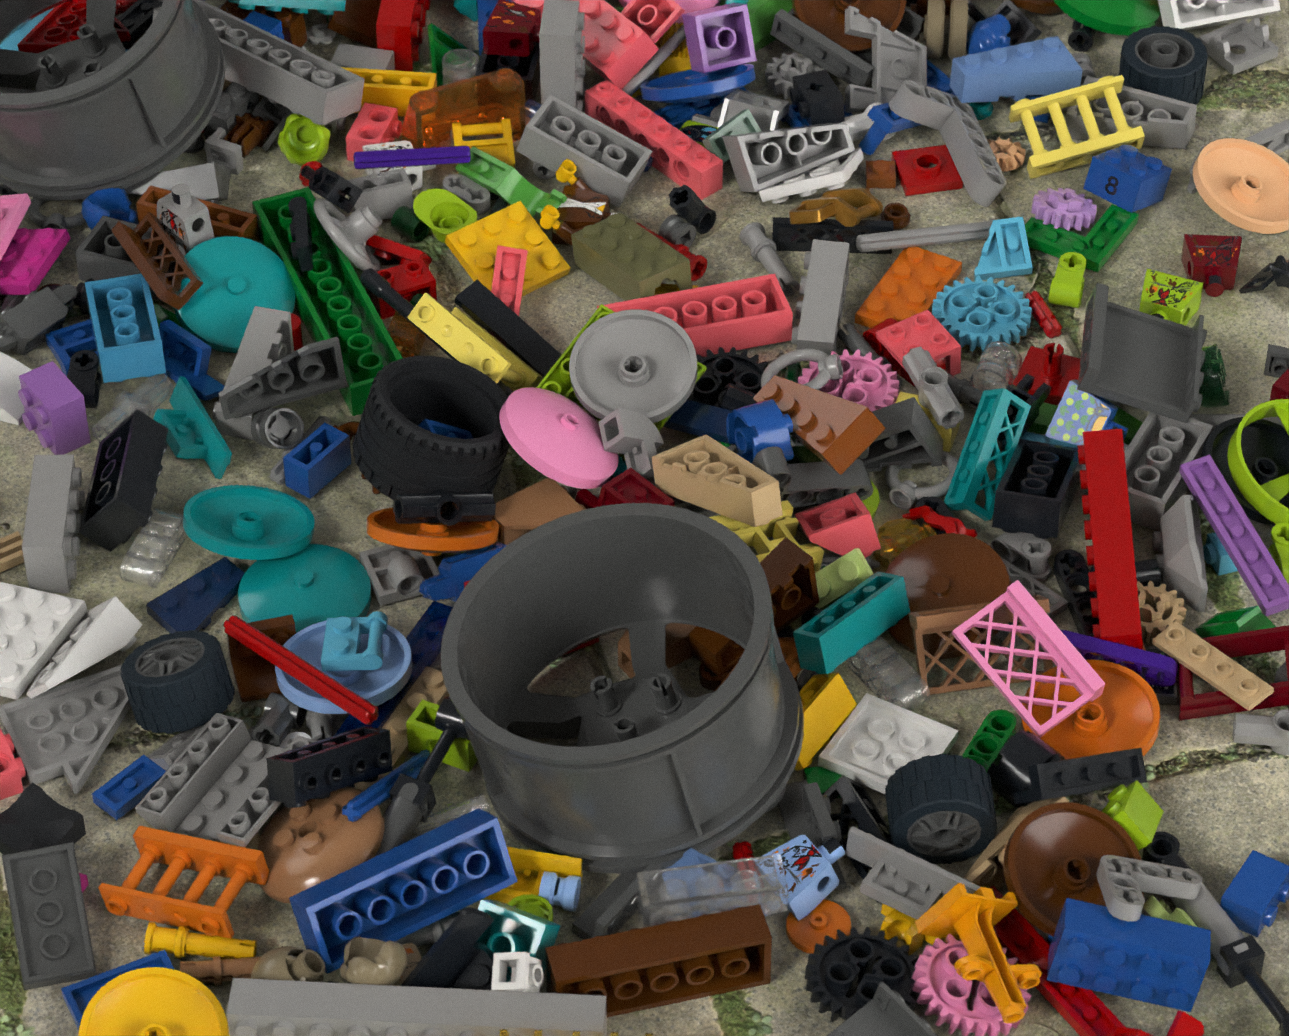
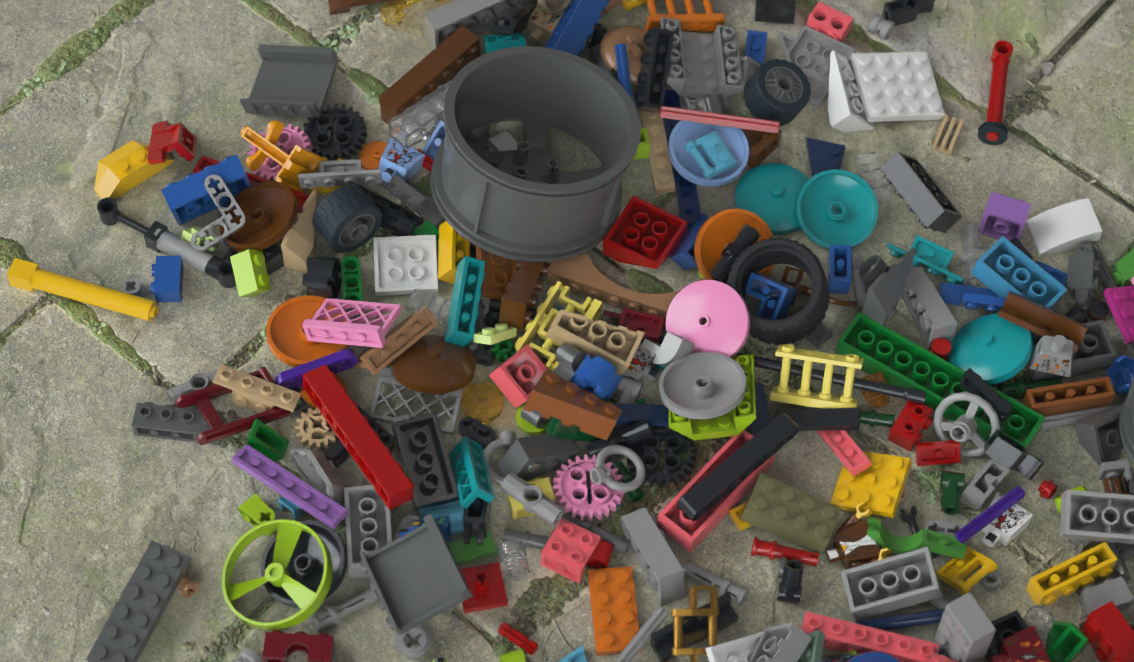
camera: 145 degrees right, 15 degrees up
(53, 523) = (932, 148): light grey brick -> none
(372, 126) = (1049, 541): coral brick -> none
(443, 212) = (932, 486): lime piece -> none
(468, 101) = (1014, 572): clear orange windscreen -> none
(525, 975) = (482, 21): white brick -> none
(666, 295) = (738, 466): none -> black beam
(934, 520) = (463, 421): red hair -> none
(982, 312) = (536, 602): medium azure gear -> none
(1083, 775) = (283, 272): black fence -> none
(1214, 379) = (375, 628): clear green cylinder -> none

